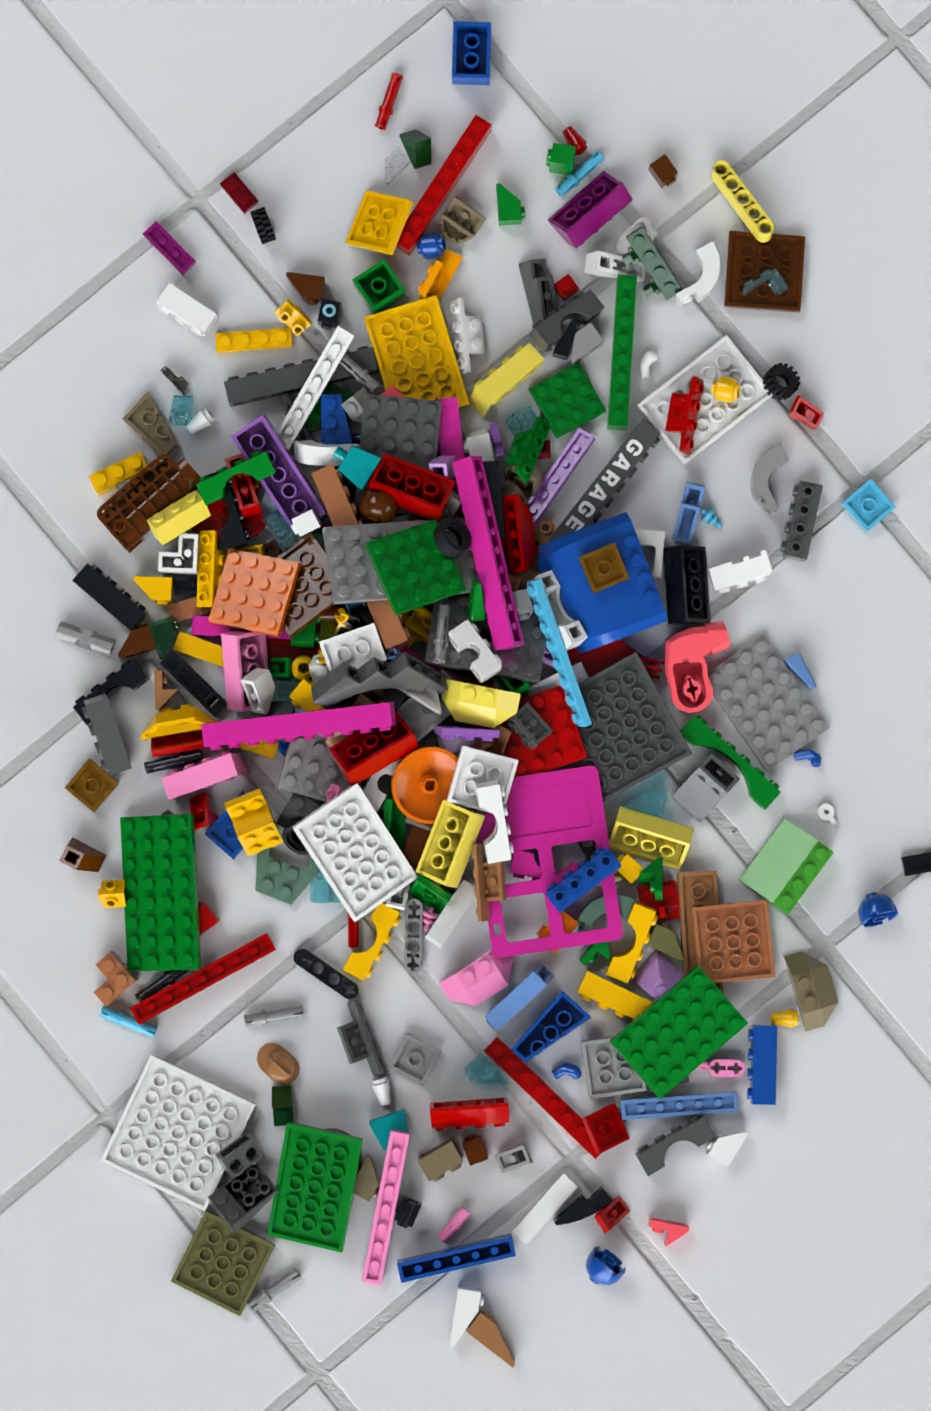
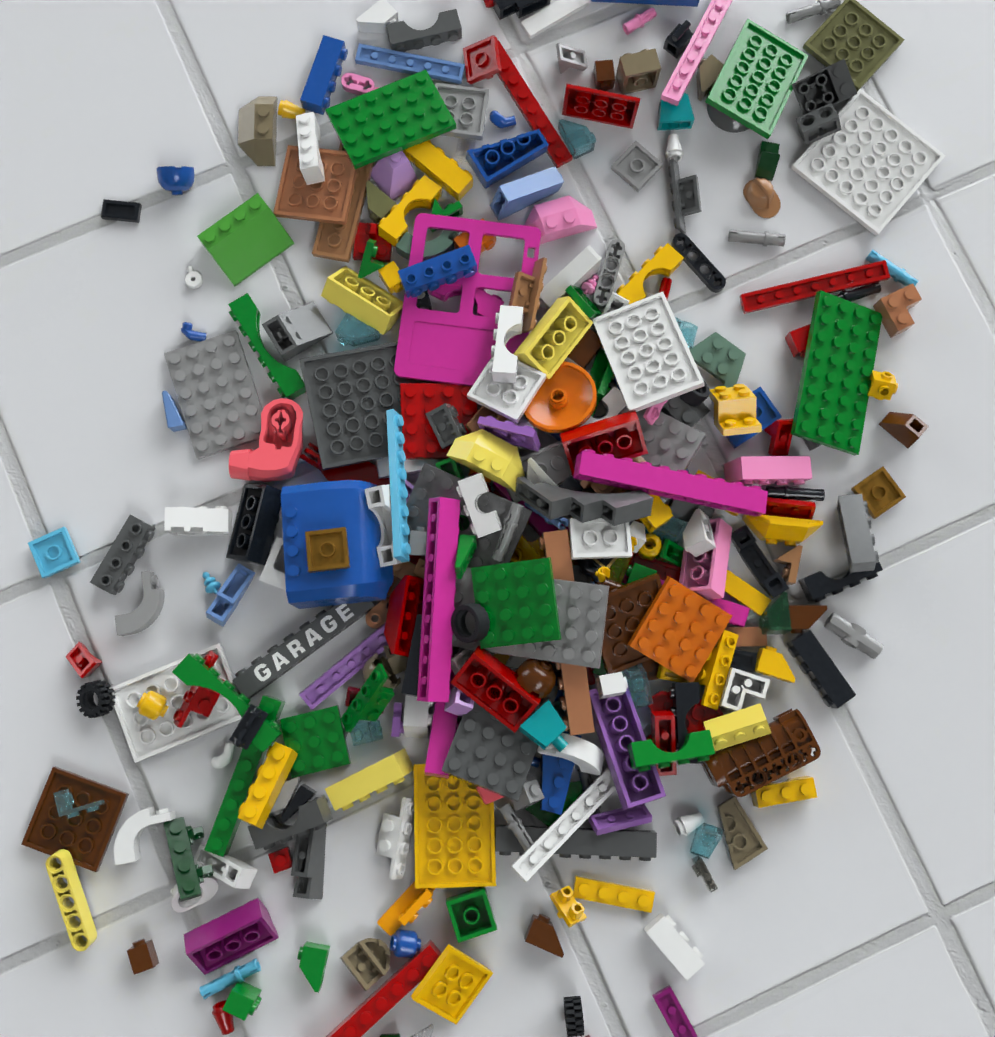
camera: 170 degrees left, 5 degrees down
(266, 405) = (619, 819): none -> medium lavender plate
(329, 314) = (529, 899): black brick -> none
(596, 347) = (268, 785): none -> yellow brick
(627, 391) = (248, 727): none -> black hinge
(691, 426) = (196, 673): none -> green arch
(757, 991) = (309, 156): none -> white arch

